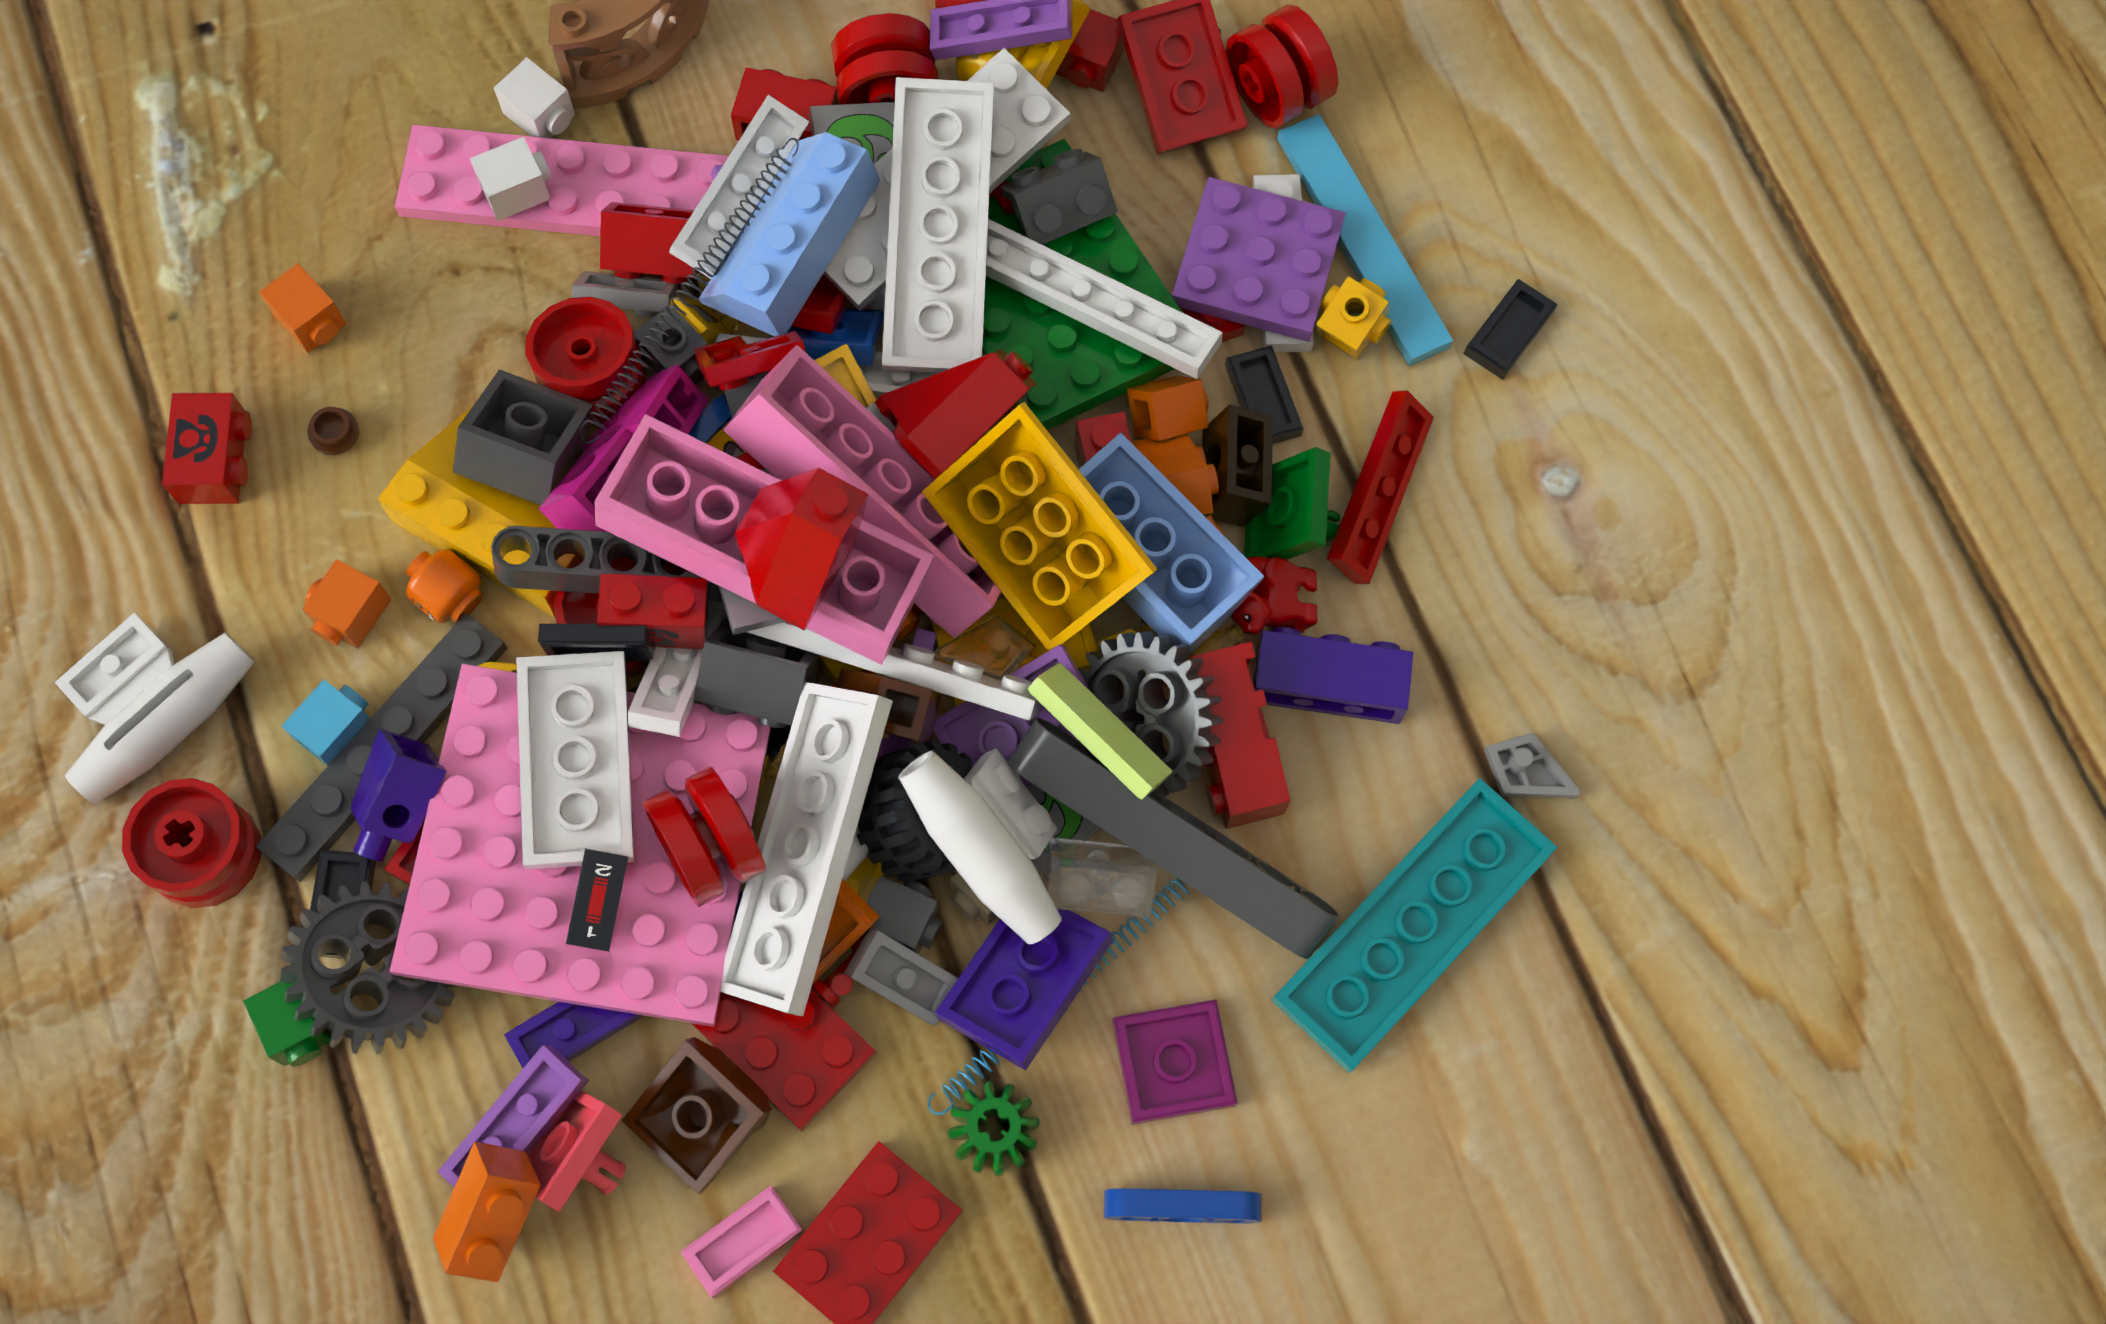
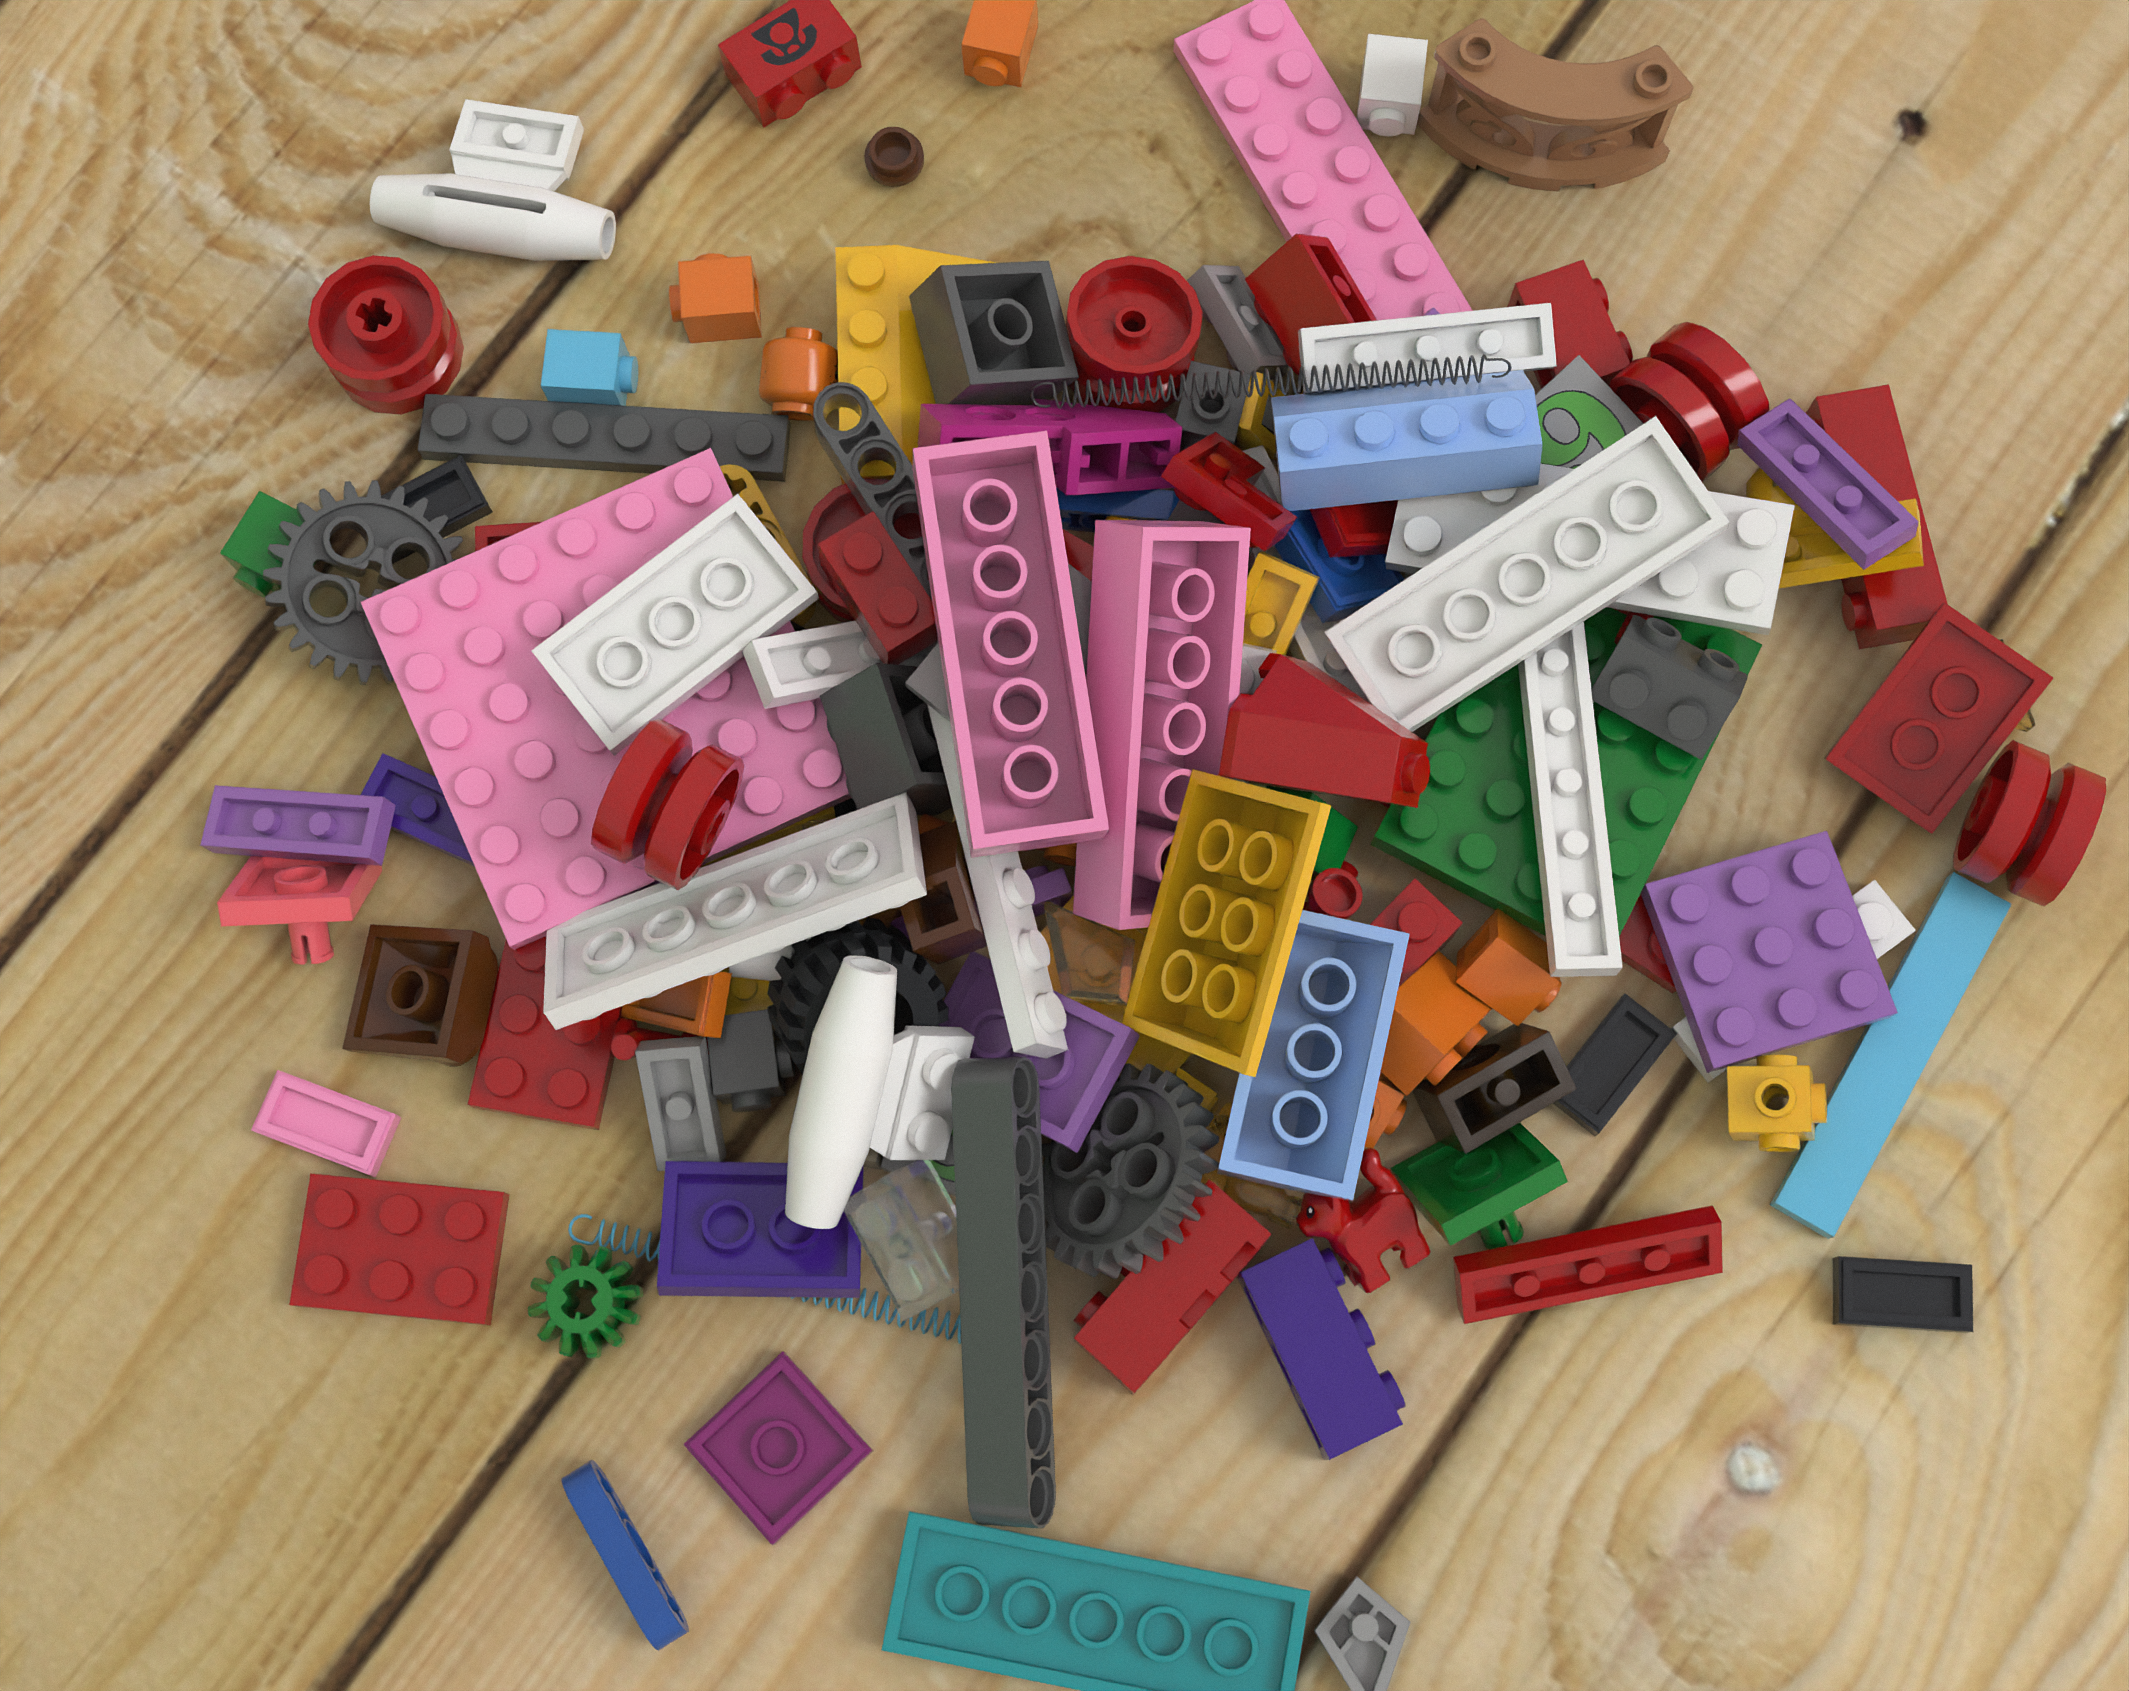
camera: 65 degrees right, 5 degrees up
(394, 792) = (552, 479): dark purple torso -> none
(486, 1212) = (191, 857): orange brick -> none
(512, 177) = (1277, 123): white brick -> none
(594, 638) = (804, 552): black tile -> none
(597, 900) = (548, 746): black sticker -> none
(799, 541) = (998, 682): red slope -> none
(1099, 730) = (1054, 1134): yellowish green tile -> none

